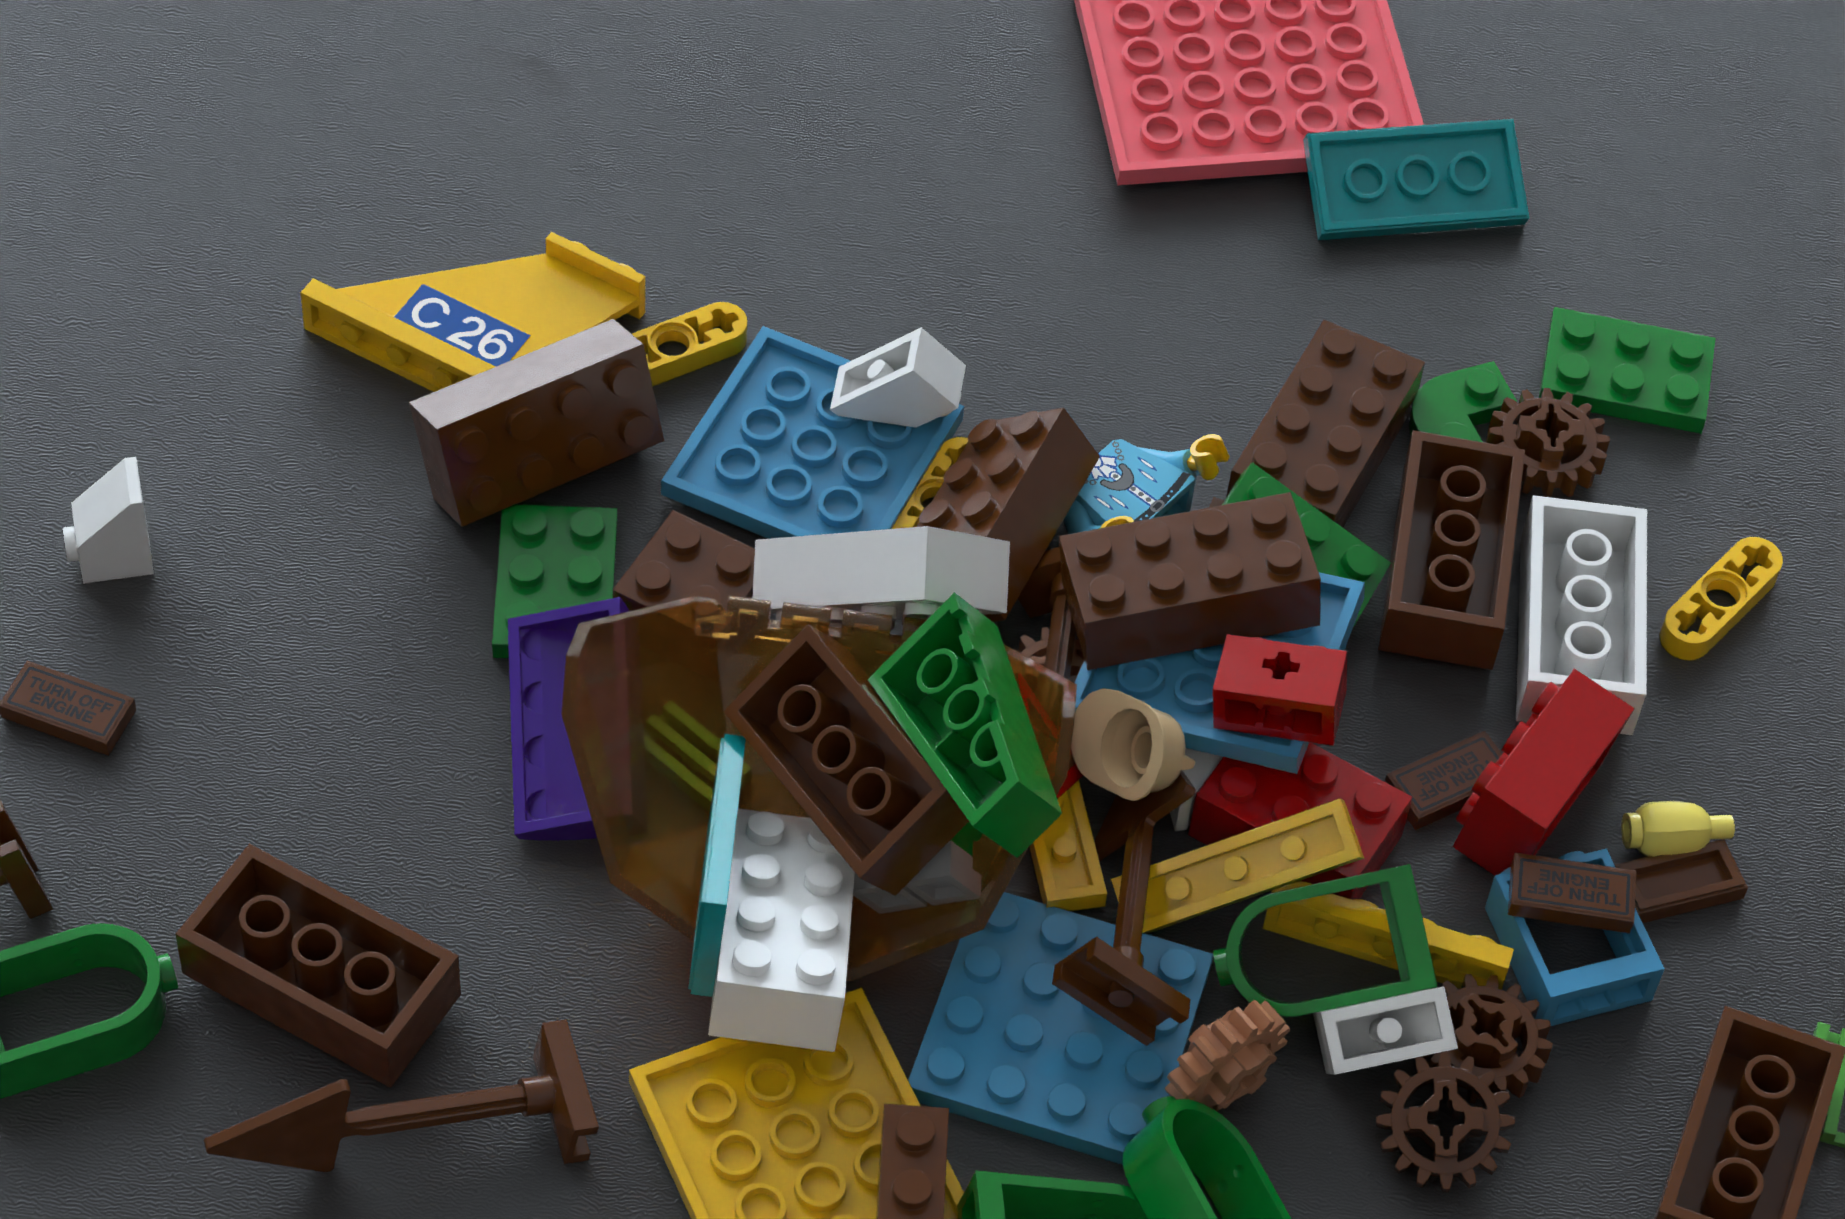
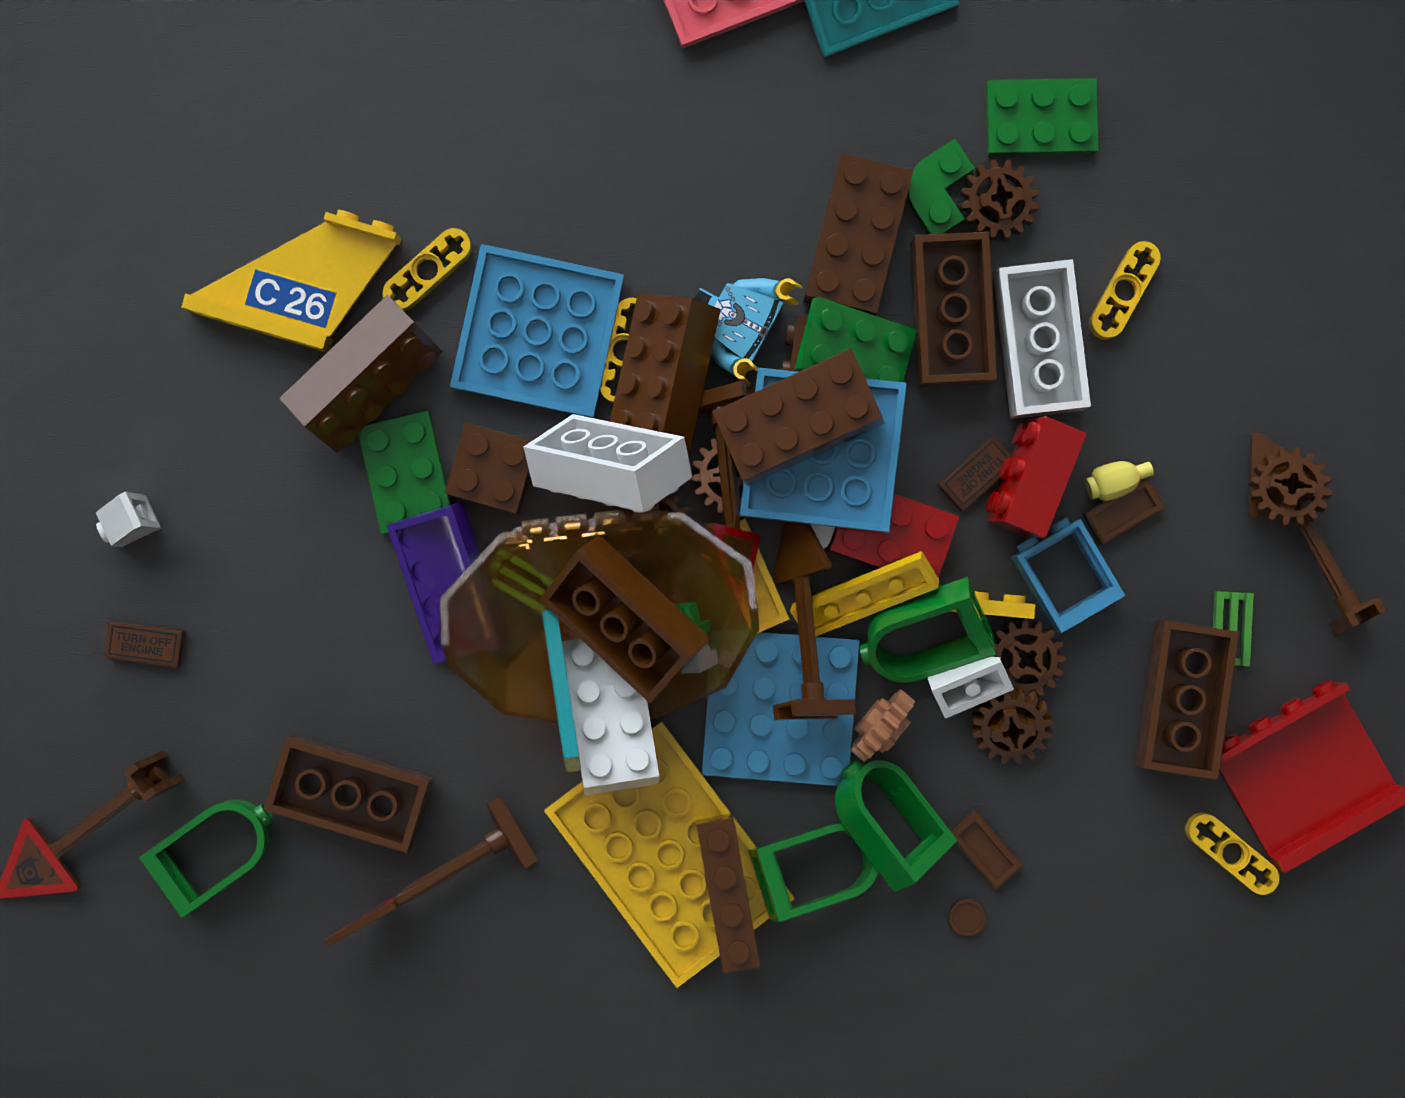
camera: 15 degrees left, 35 degrees up
(900, 382) = (580, 280): white slope -> none
(970, 724) = (693, 603): green wedge -> none
(1127, 744) = (786, 543): tan piece -> none
(1280, 689) = (851, 502): red brick -> none
(1572, 892) = (1065, 562): reddish brown tile -> none

